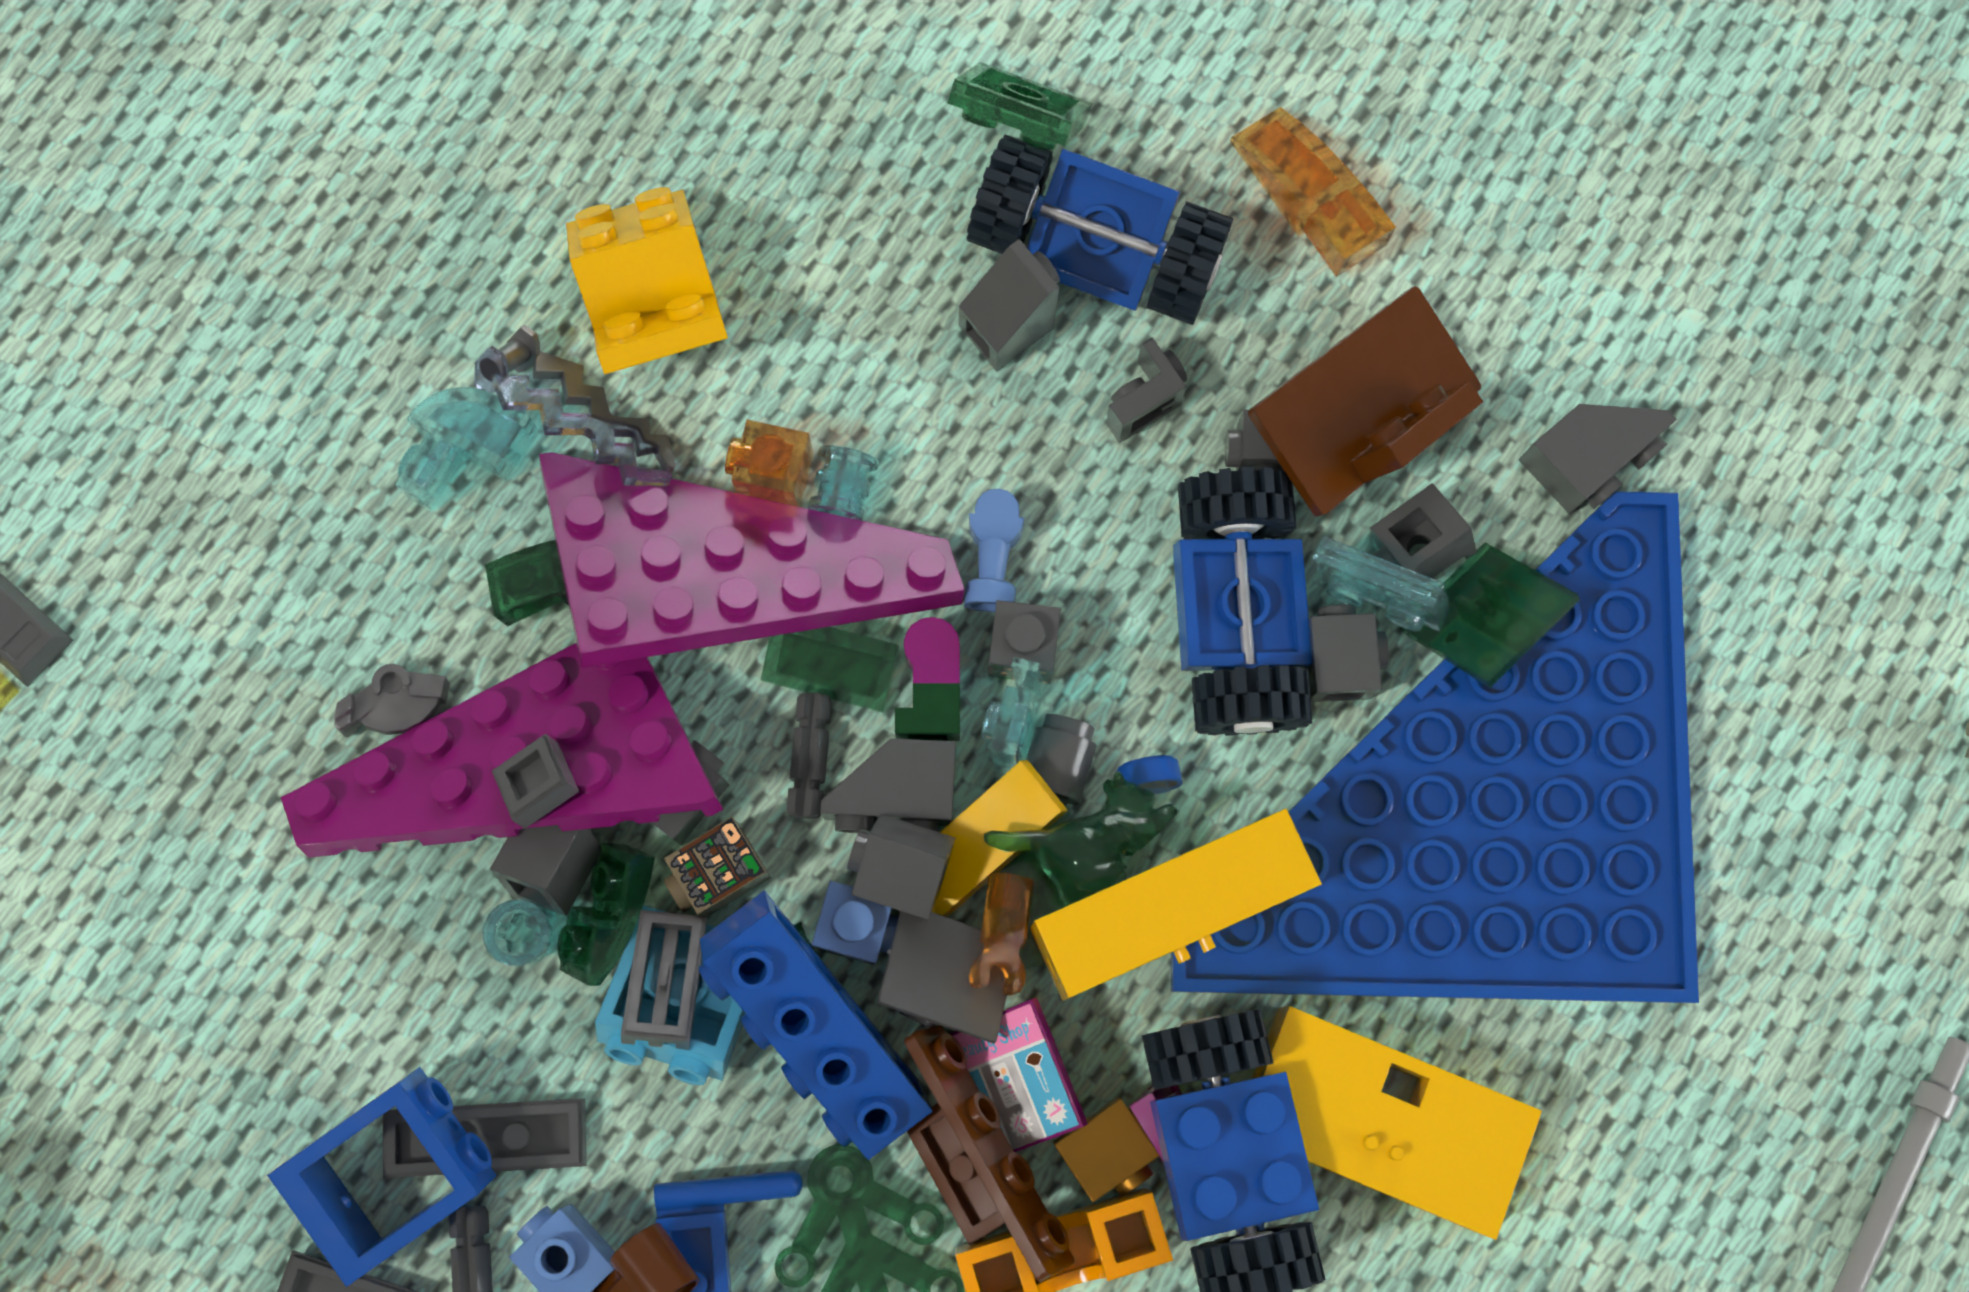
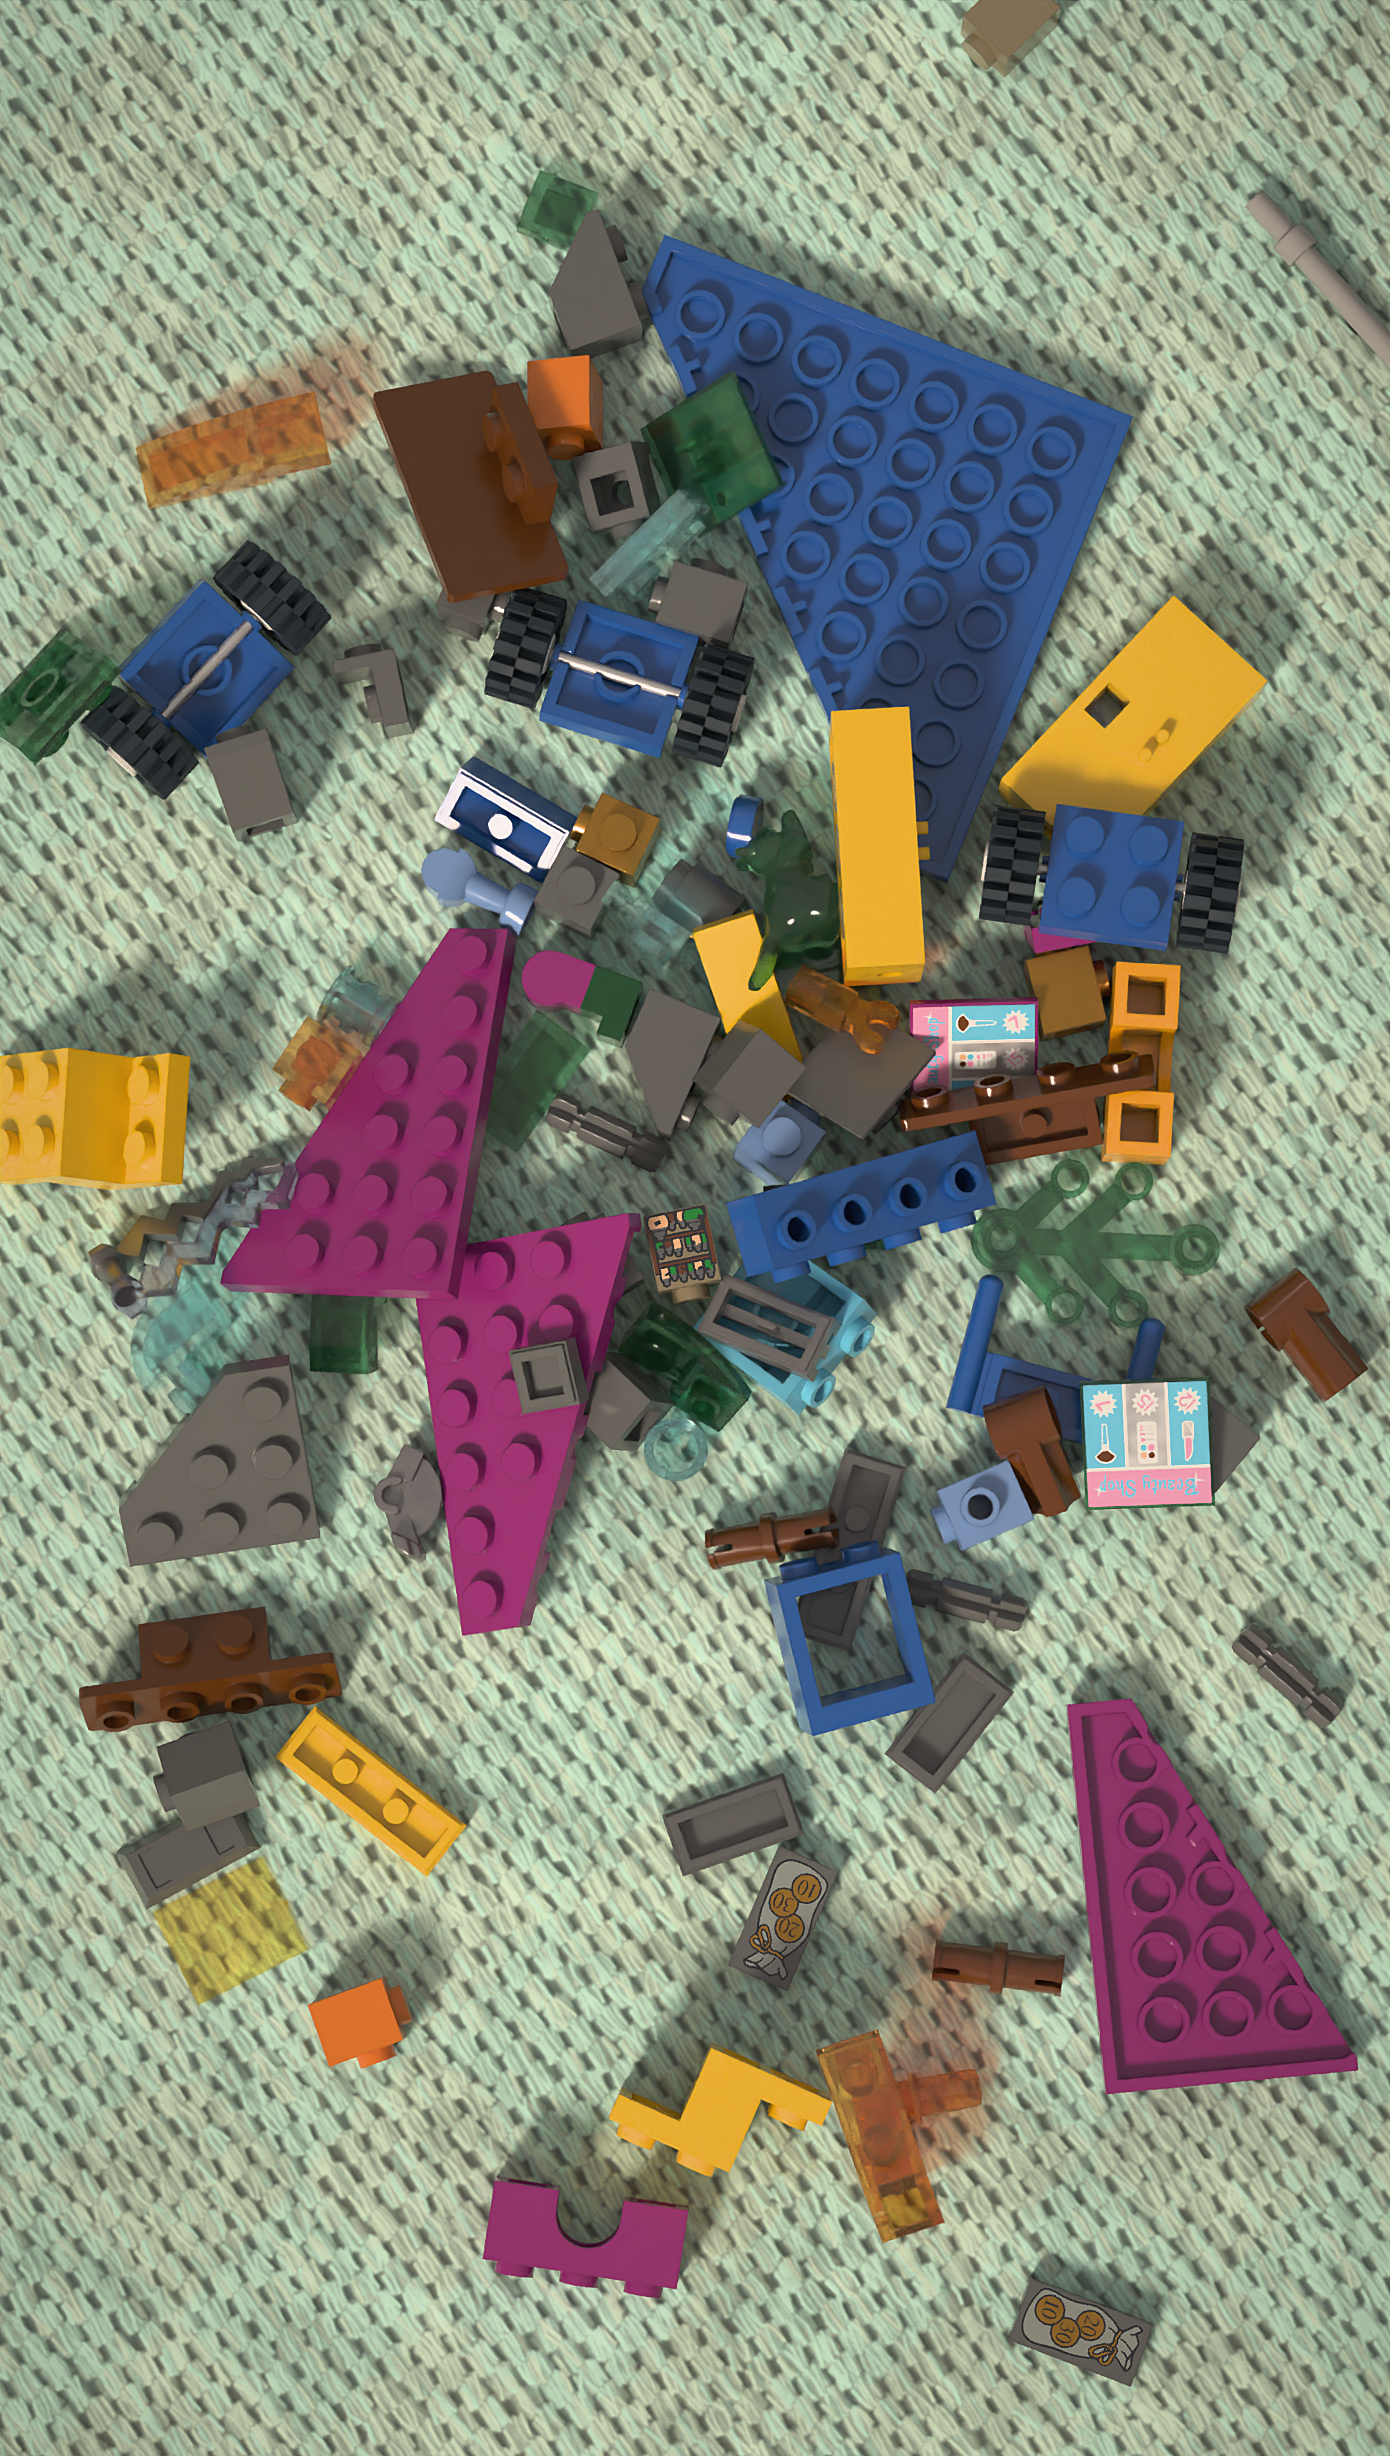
camera: 65 degrees left, 5 degrees up
(65, 608) = (205, 1777): none -> dark grey brick
(100, 1210) = (782, 1918): none -> tile
(108, 768) = (371, 1791): none -> yellow tile
(177, 573) = (208, 1669): none -> reddish brown bracket
(179, 1125) = (733, 1824): none -> dark grey tile
(358, 523) = (226, 1473): none -> dark grey plate
(467, 1060) = (772, 1538): none -> reddish brown pin
(1073, 553) = (506, 818): none -> blue slope
(1089, 658) = (616, 836): none -> pearl gold brick
(1479, 460) = (566, 405): none -> orange brick
(1656, 386) = (555, 210): none -> clear green tile

